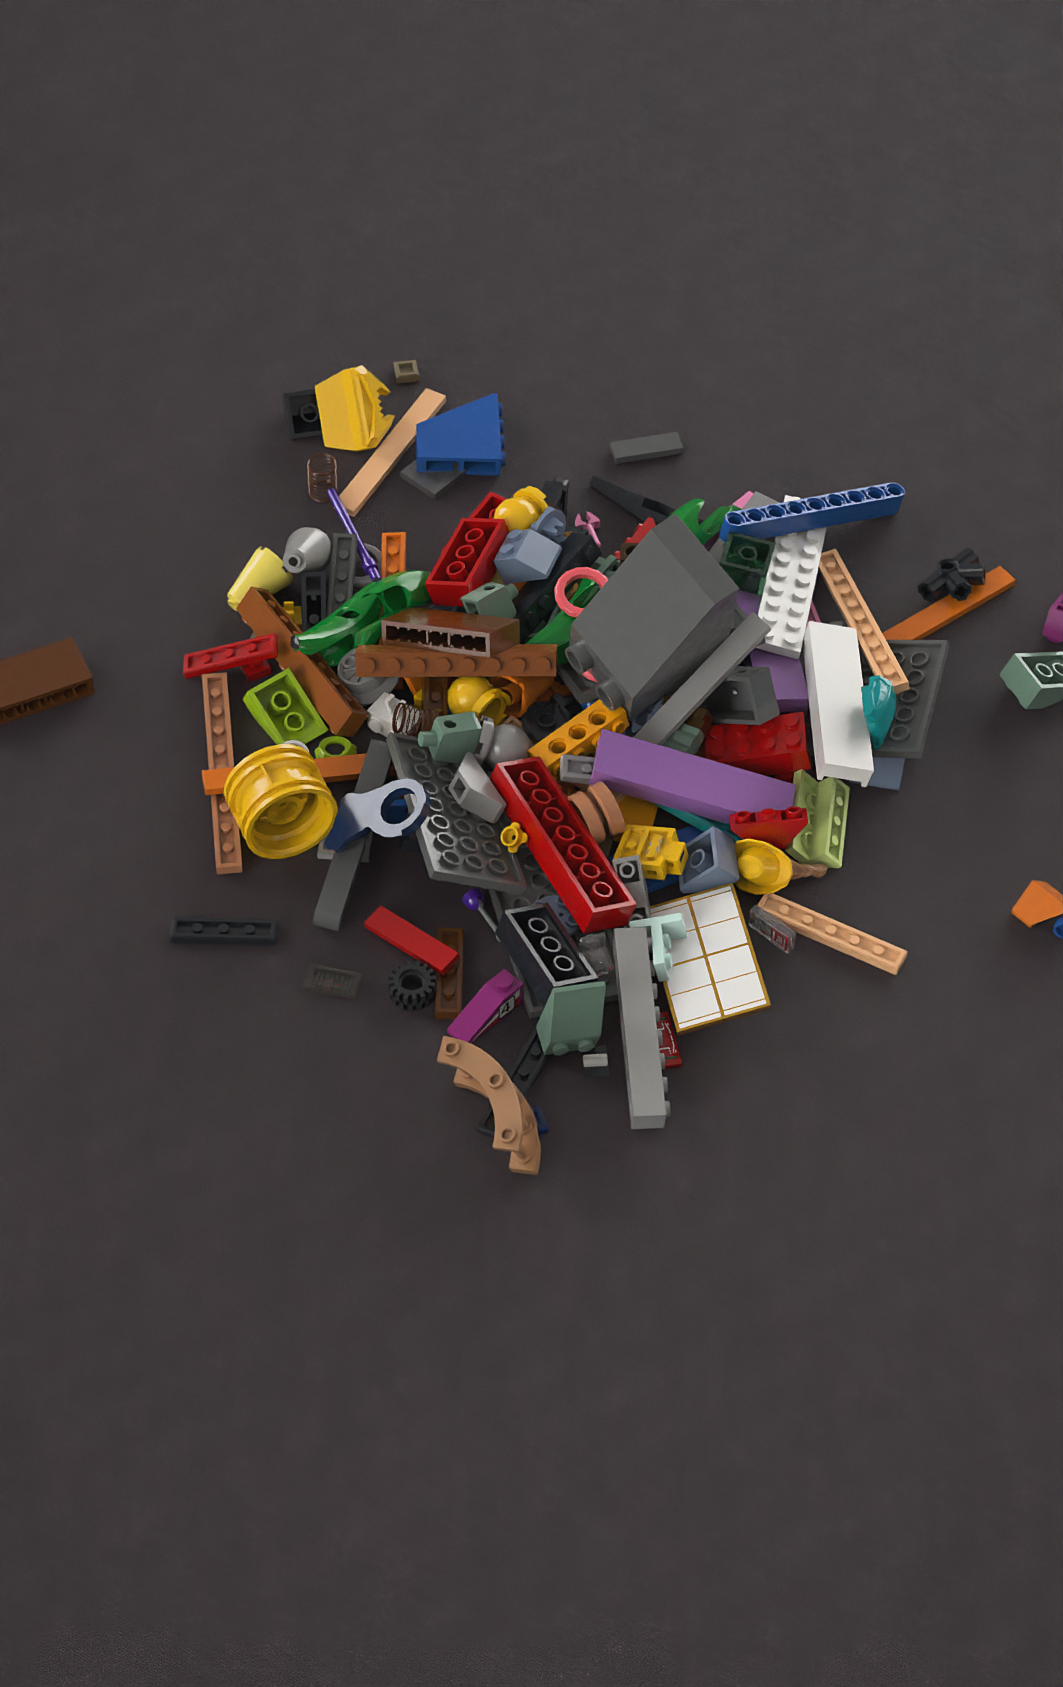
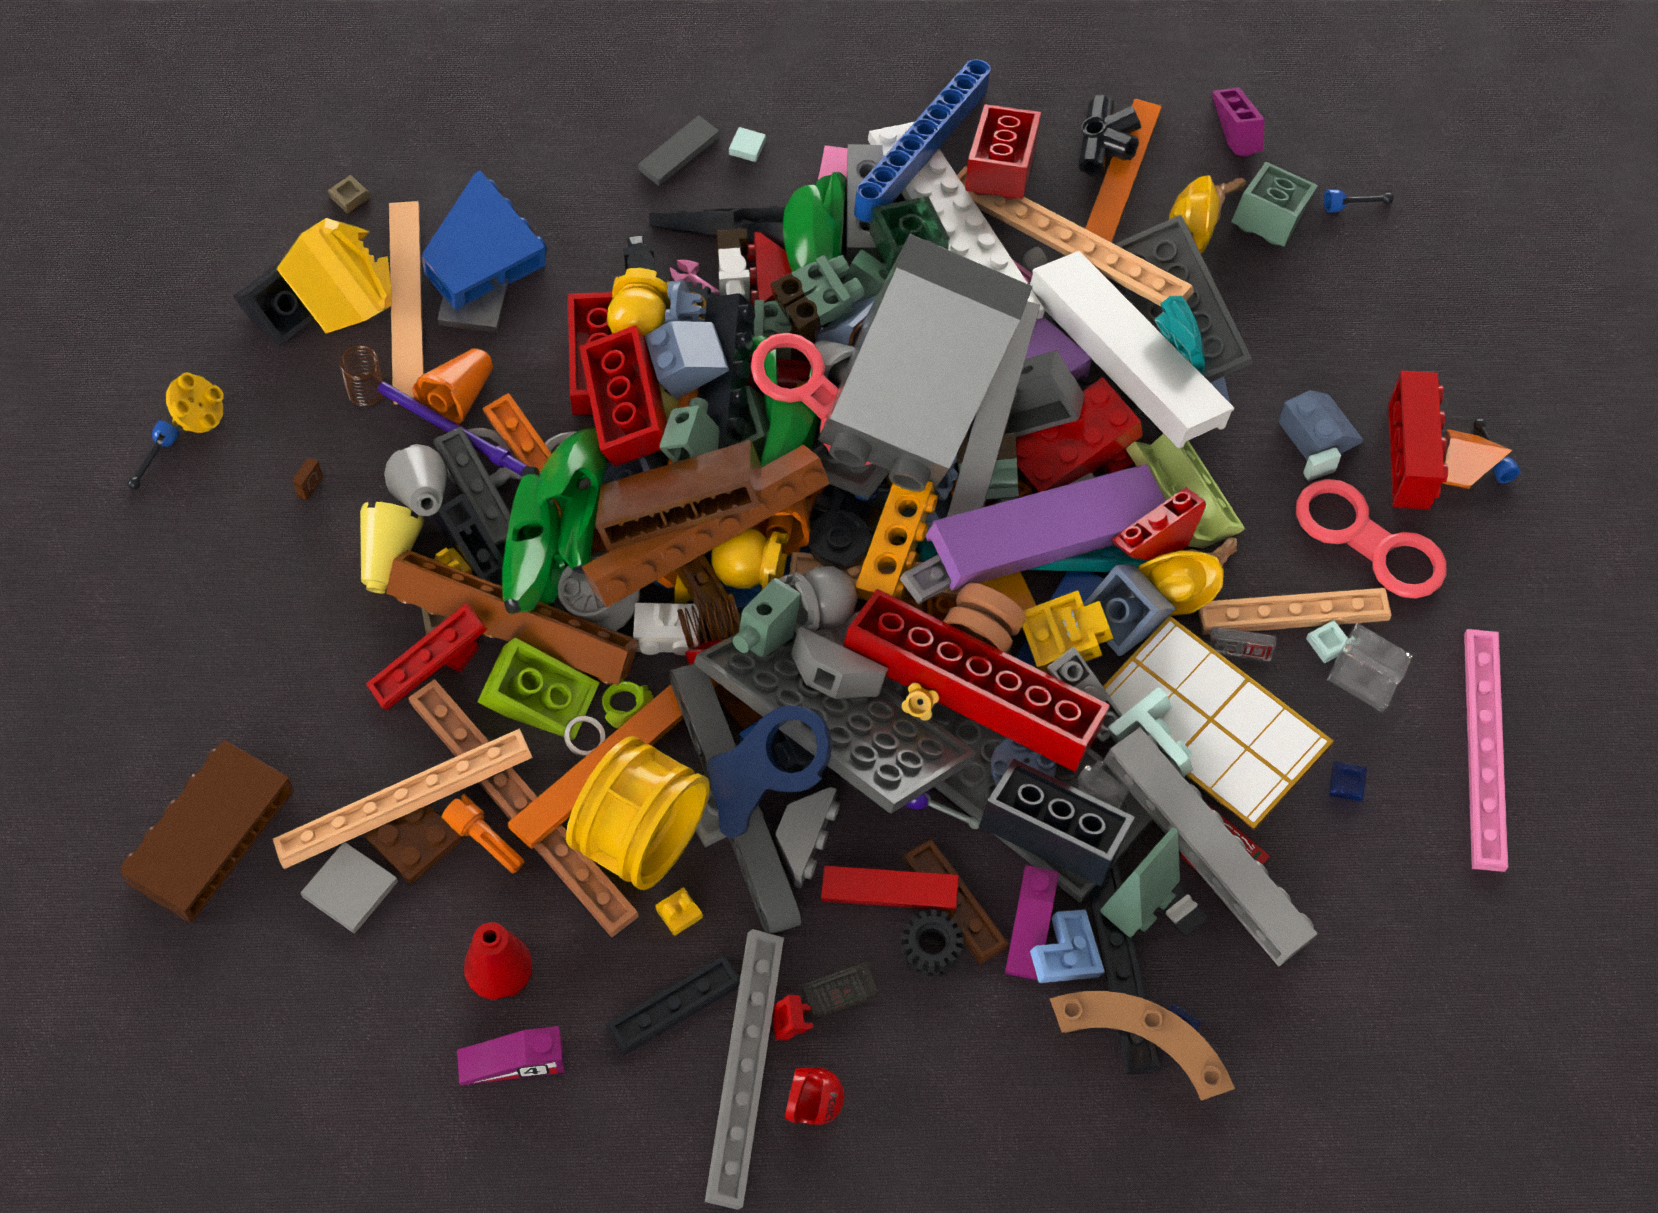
camera: 35 degrees left, 10 degrees up
(83, 761) = (349, 887): none -> light grey tile
(106, 903) = (512, 1057): none -> magenta slope
(134, 842) = (497, 962): none -> red cone
(143, 755) = (414, 842): none -> reddish brown plate
(152, 726) = (401, 798): none -> light nougat tile
(176, 455) = (163, 436): none -> hinge
(182, 762) = (468, 819): none -> orange piece
(215, 439) = (183, 402): none -> yellow plate
(235, 986) = (744, 1070): none -> light grey plate
(242, 521) = (307, 478): none -> reddish brown tile
(266, 1026) = (814, 1096): none -> red helmet
(270, 882) = (679, 911): none -> yellow tile
(286, 975) = (789, 1018): none -> red tile
(377, 512) = (455, 384): none -> orange cone
(384, 879) = (804, 832): none -> light grey slope
(496, 1041) = (1074, 955): none -> light blue plate
(615, 527) = (733, 262): none -> white hips
(696, 466) = (747, 144): none -> light aqua tile
(776, 1050) = (1348, 781): none -> clear blue tile
(839, 963) = (1327, 641): none -> light aqua tile
(851, 991) = (1369, 667): none -> clear slope
(863, 547) = (1003, 151): none -> red brick
(892, 1085) = (1485, 751): none -> bright pink tile
(925, 918) = (1371, 539): none -> coral bar
(929, 853) = (1322, 464): none -> light aqua tile
(950, 830) = (1317, 424): none -> sand blue slope
(976, 654) = (1201, 207): none -> yellow hat
(1007, 870) = (1416, 440): none -> red brick

